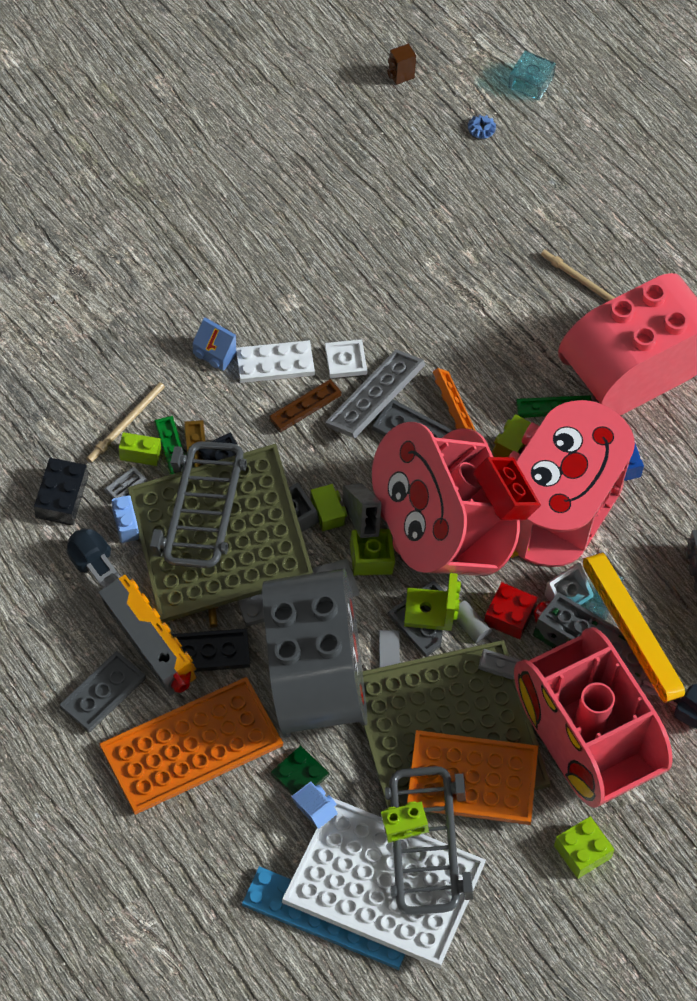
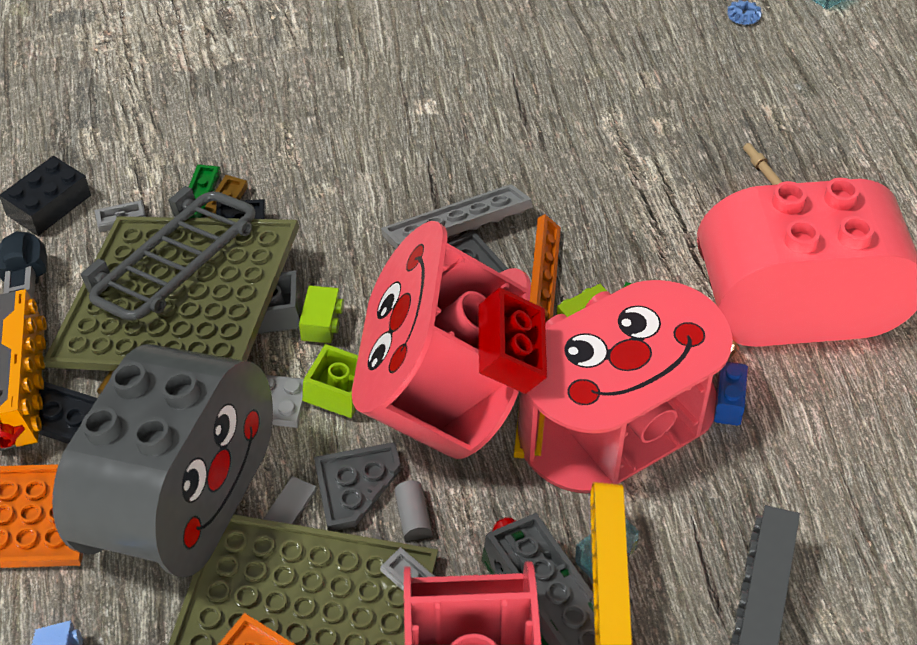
camera: 30 degrees right, 10 degrees down
(102, 446) = (123, 171): tan bar -> none
(125, 519) = (87, 243): light blue brick -> none
(140, 449) = (156, 182): lime brick -> none
(214, 344) = (309, 113): medium blue slope -> none
(275, 361) = (369, 154): white plate -> none
(299, 770) = (79, 601): dark green plate -> none
(305, 405) = (370, 205): reddish brown plate -> none
(346, 358) = (448, 175): white plate -> none
(363, 509) = (346, 327): dark grey slope -> none
(443, 606) = (381, 469): lime bracket -> none
(510, 610) = (466, 516): red brick -> none
(571, 584) = (565, 515): white slope -> none

